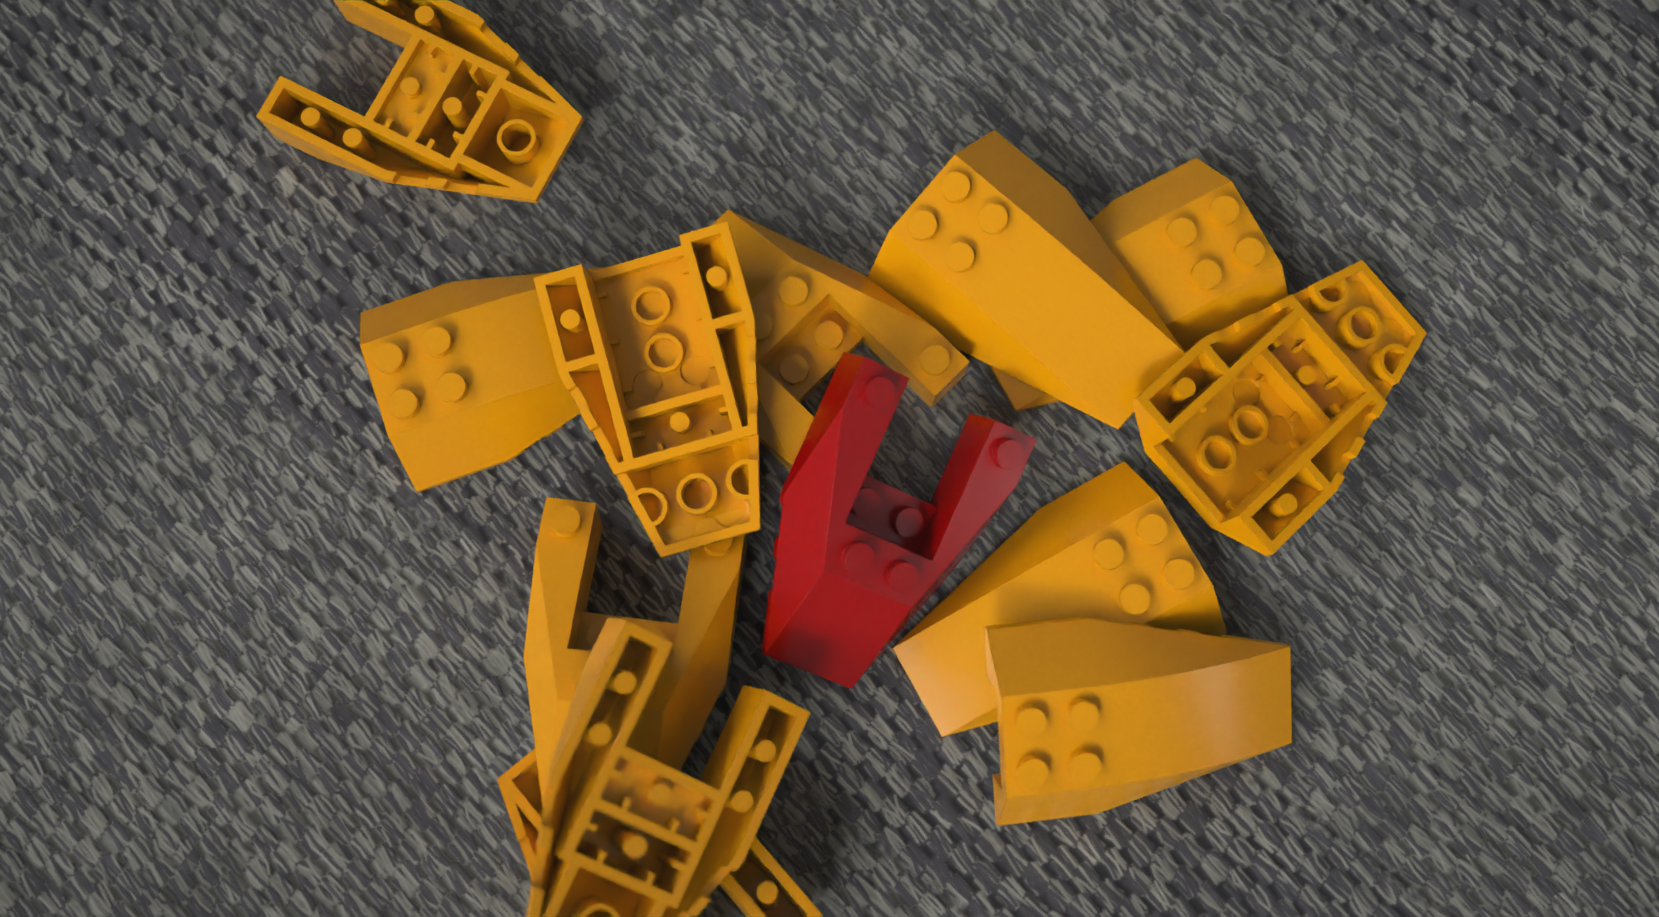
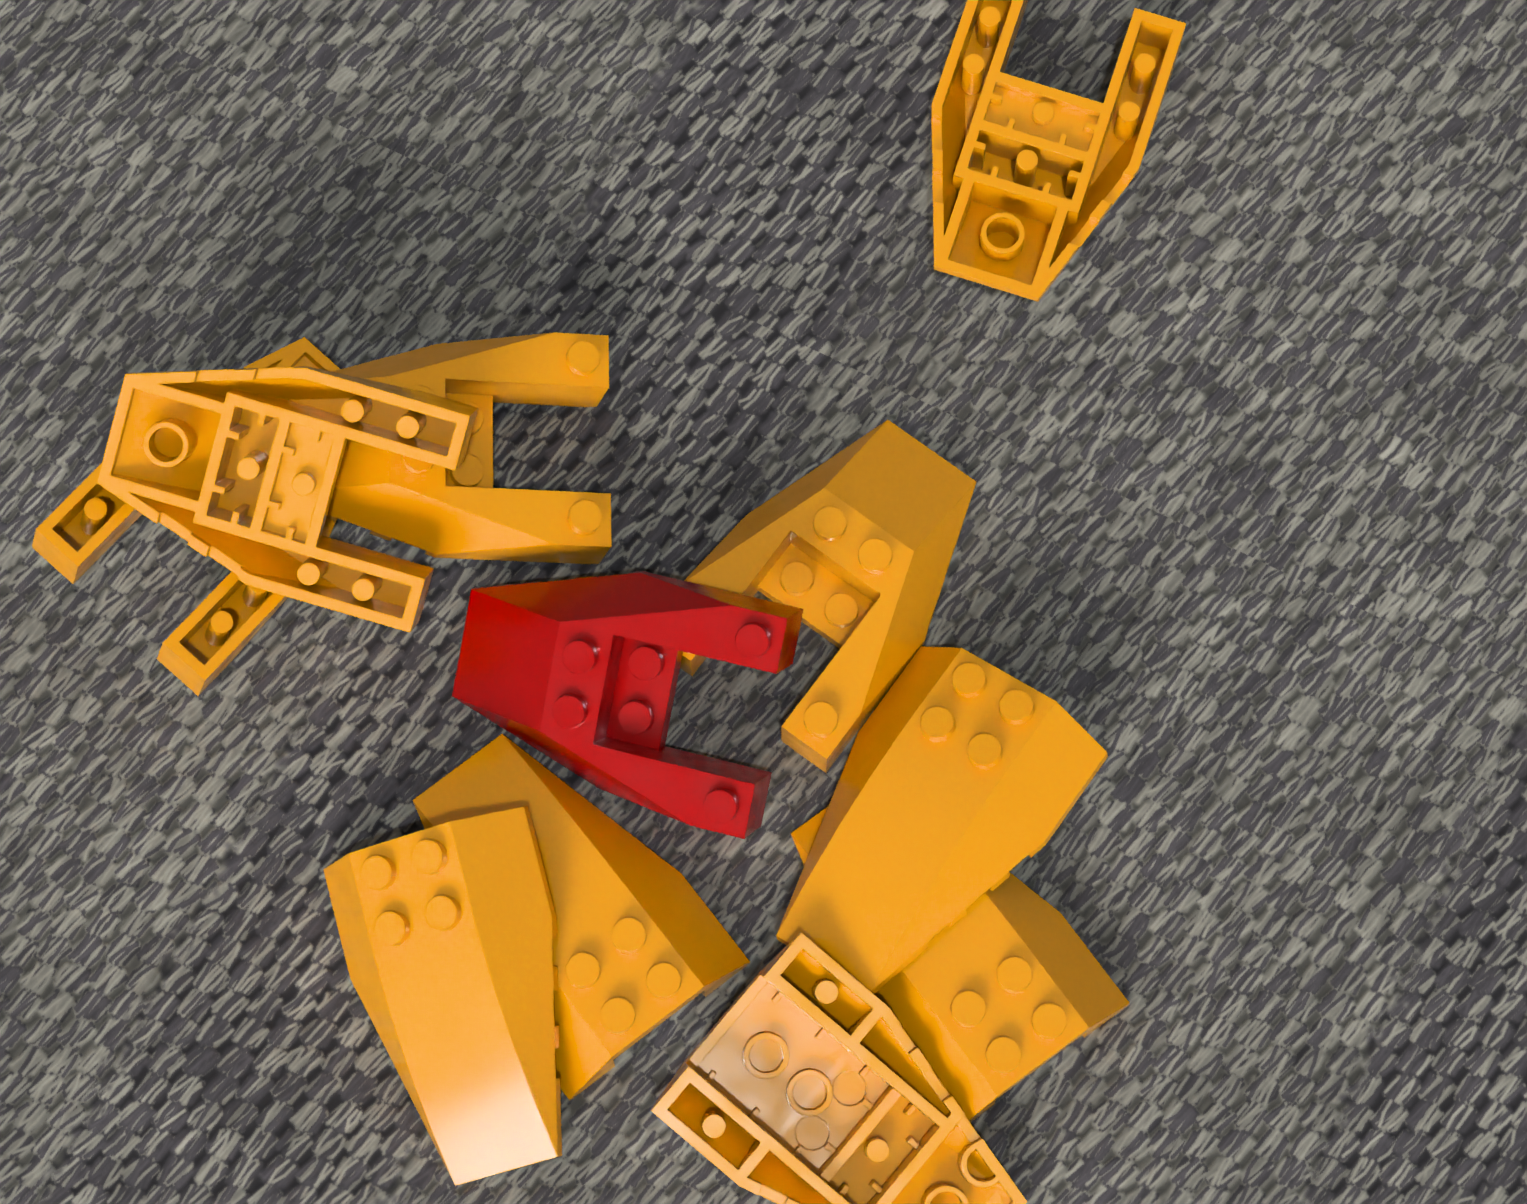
camera: 80 degrees right, 5 degrees down
(464, 376) = (762, 274): light orange wedge -> none
(667, 383) = (747, 433): light orange wedge -> none

